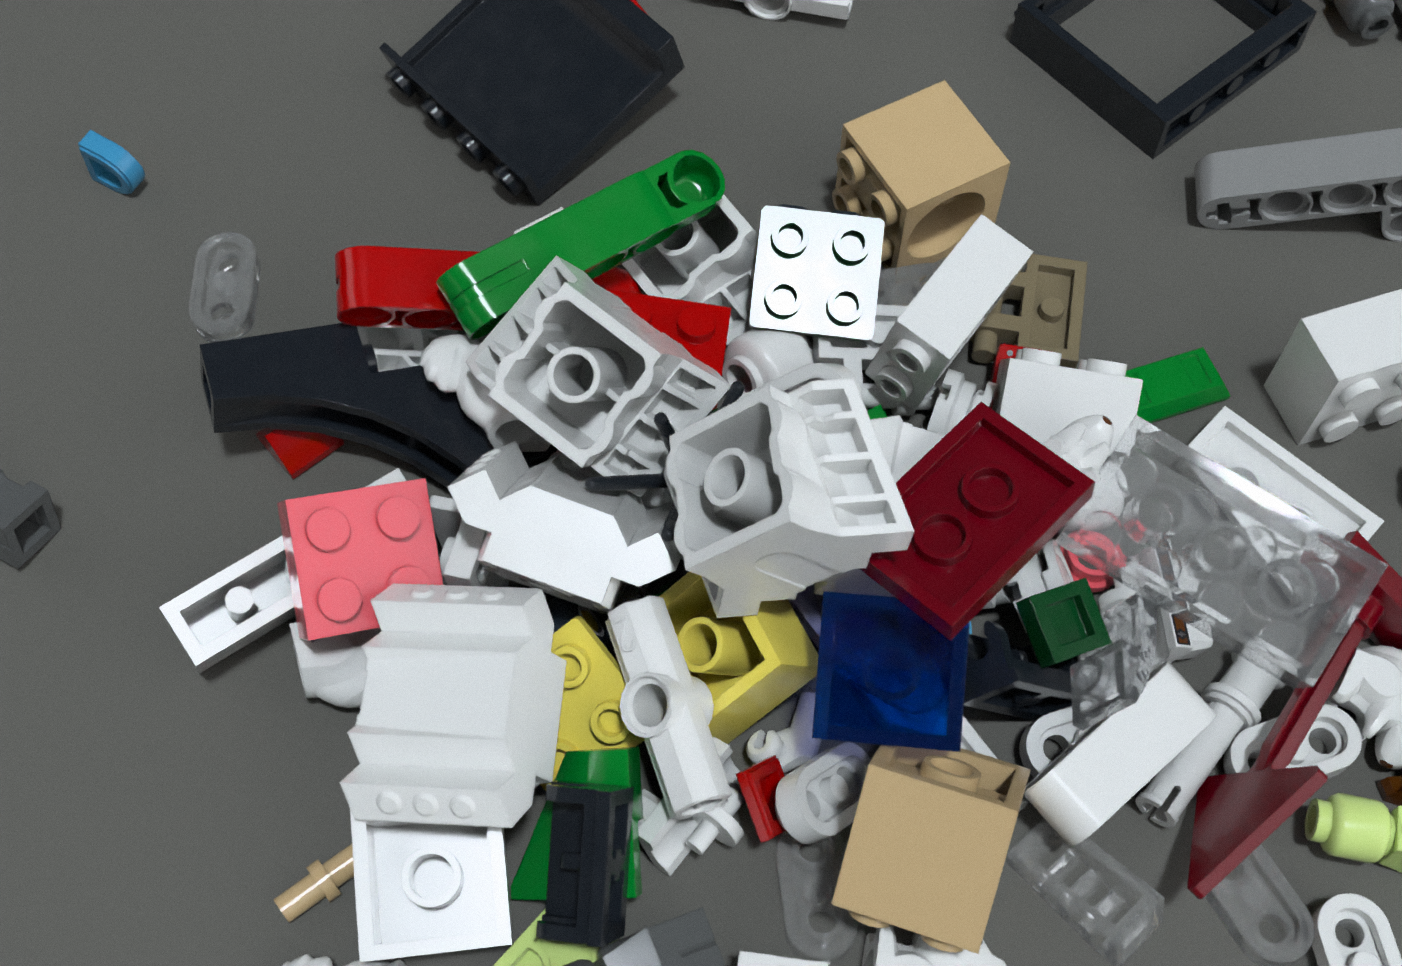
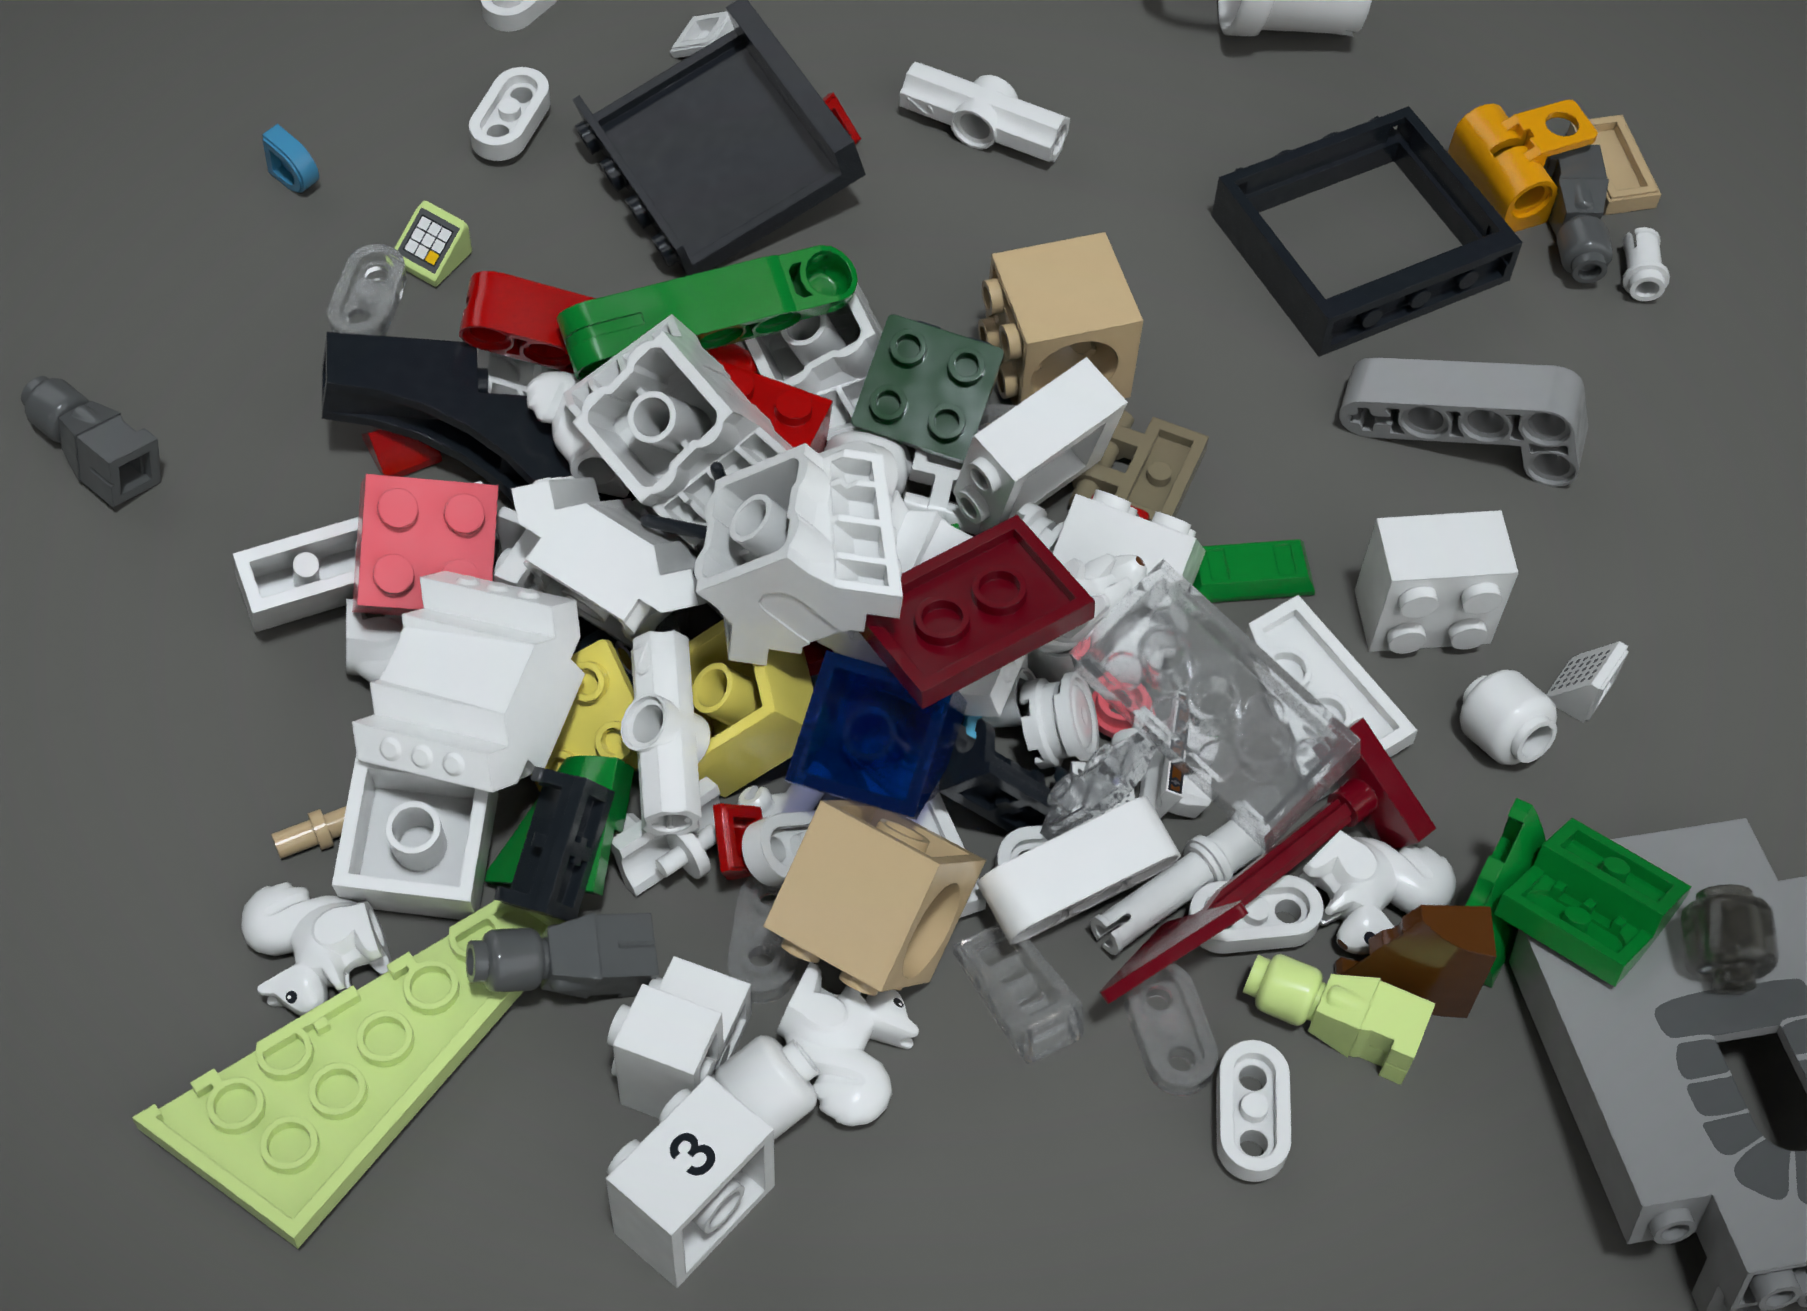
camera: 10 degrees right, 5 degrees down
(277, 220) = (433, 243): none -> slope
(313, 84) = (509, 113): none -> white plate
(1063, 622) = (1054, 738): dark green plate -> none

